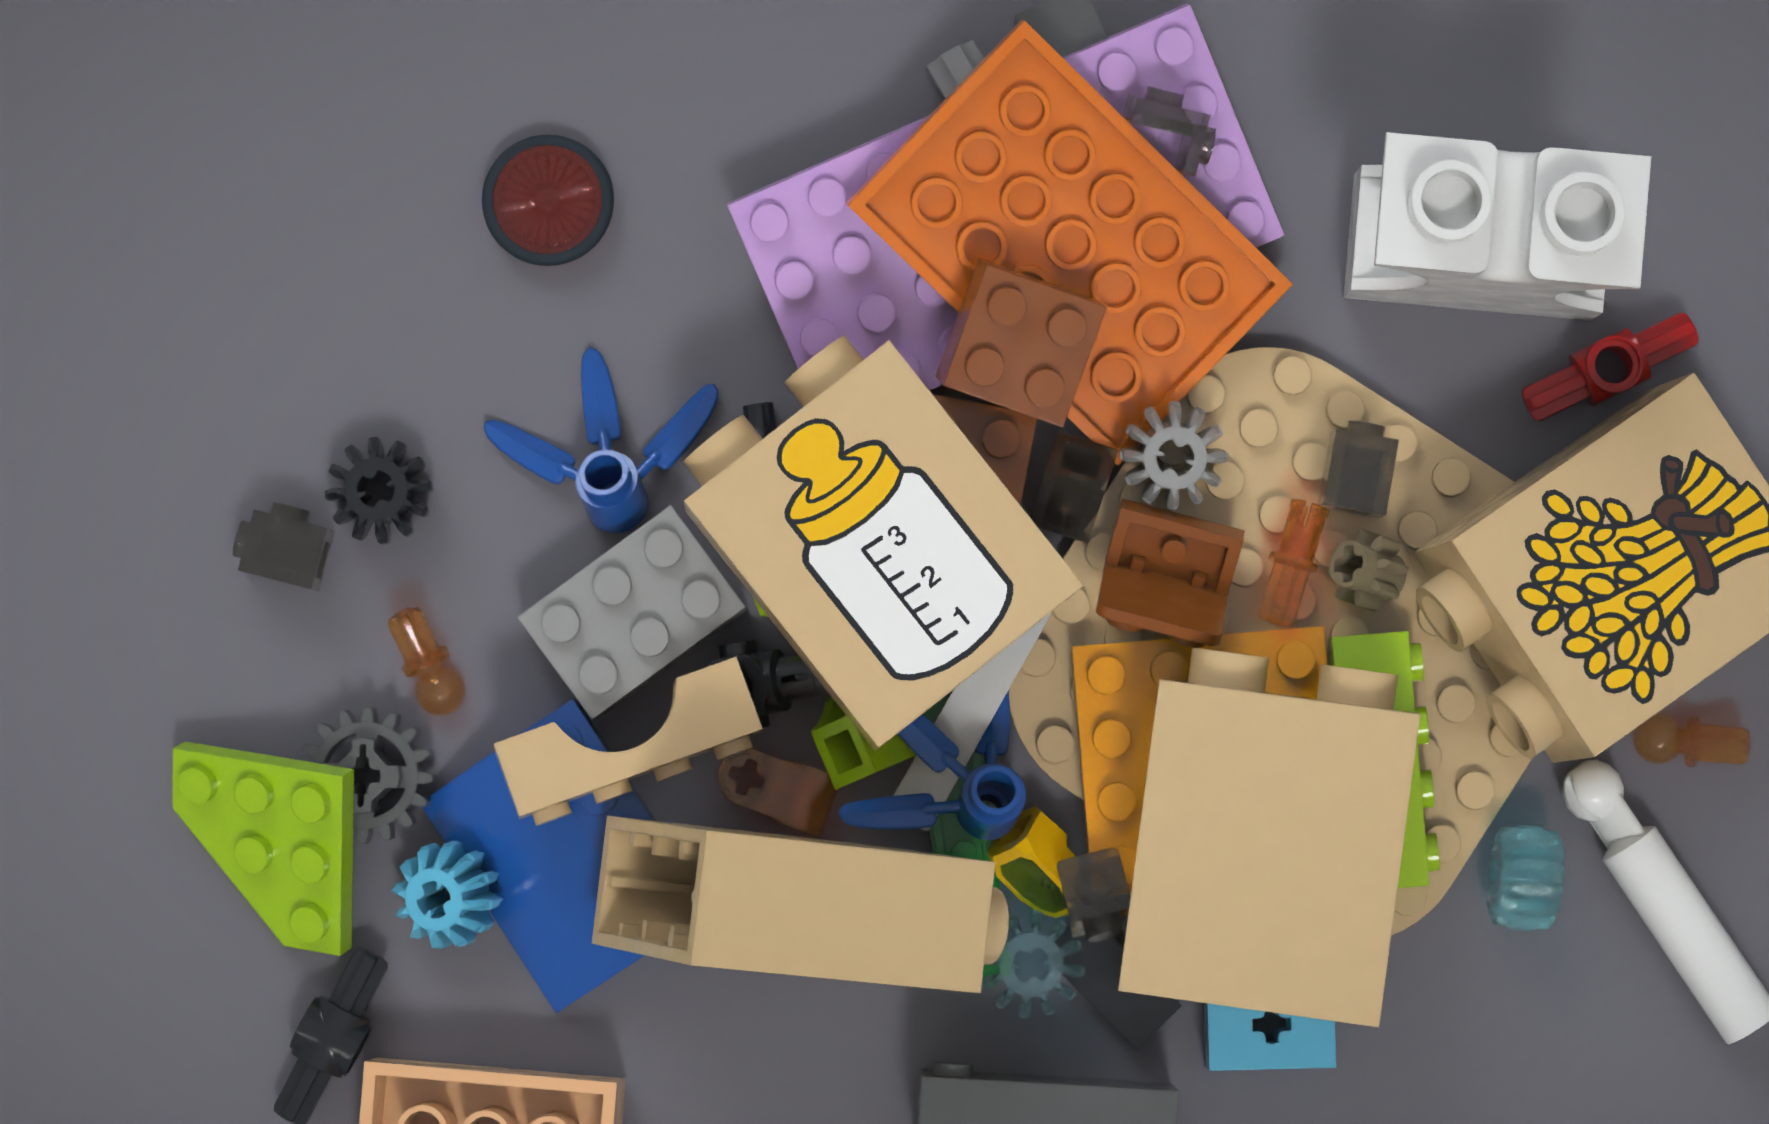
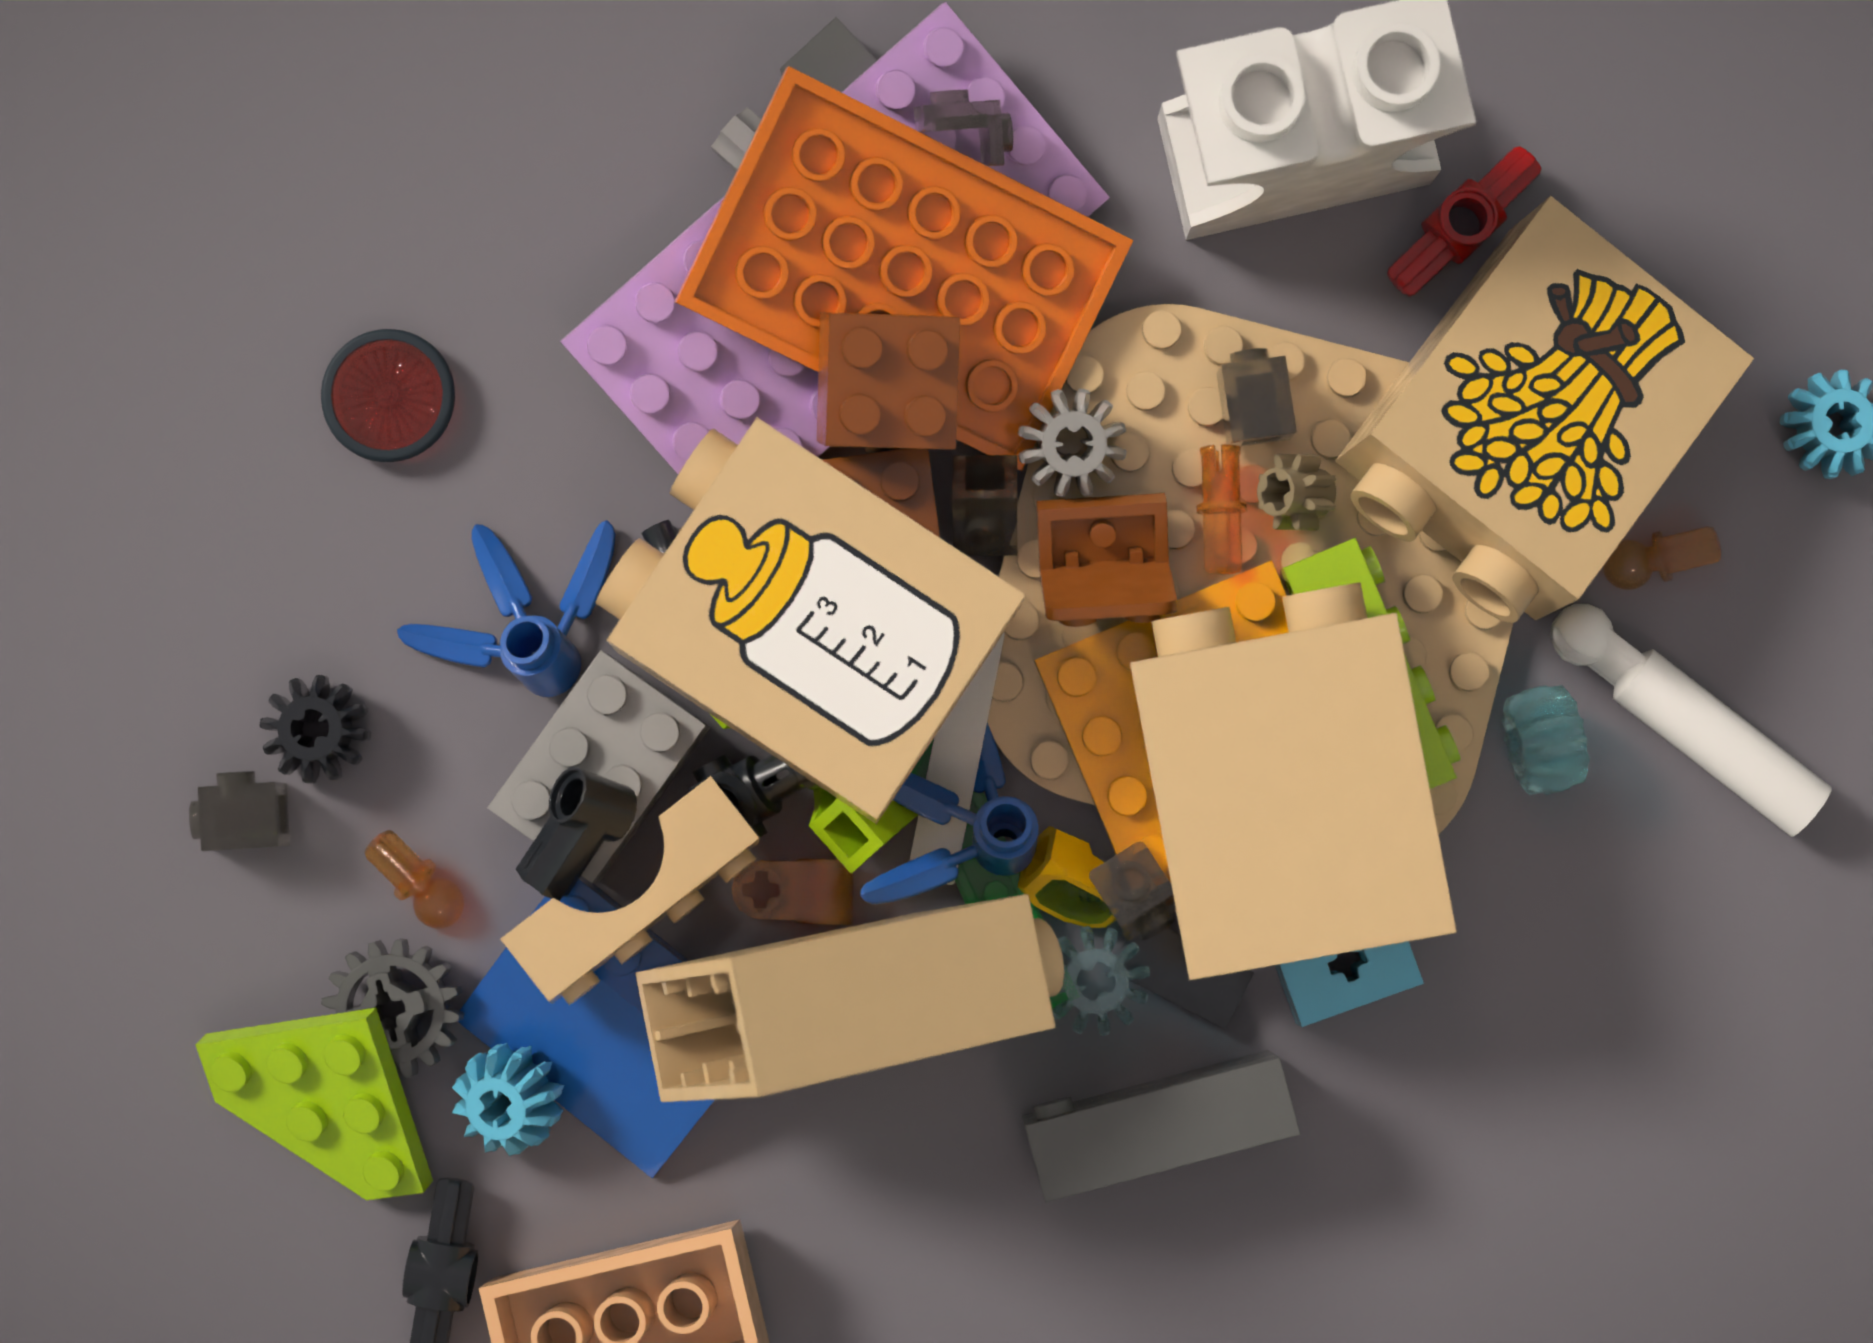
camera: 15 degrees left, 0 degrees up
(606, 653) = (582, 816): none -> black piece

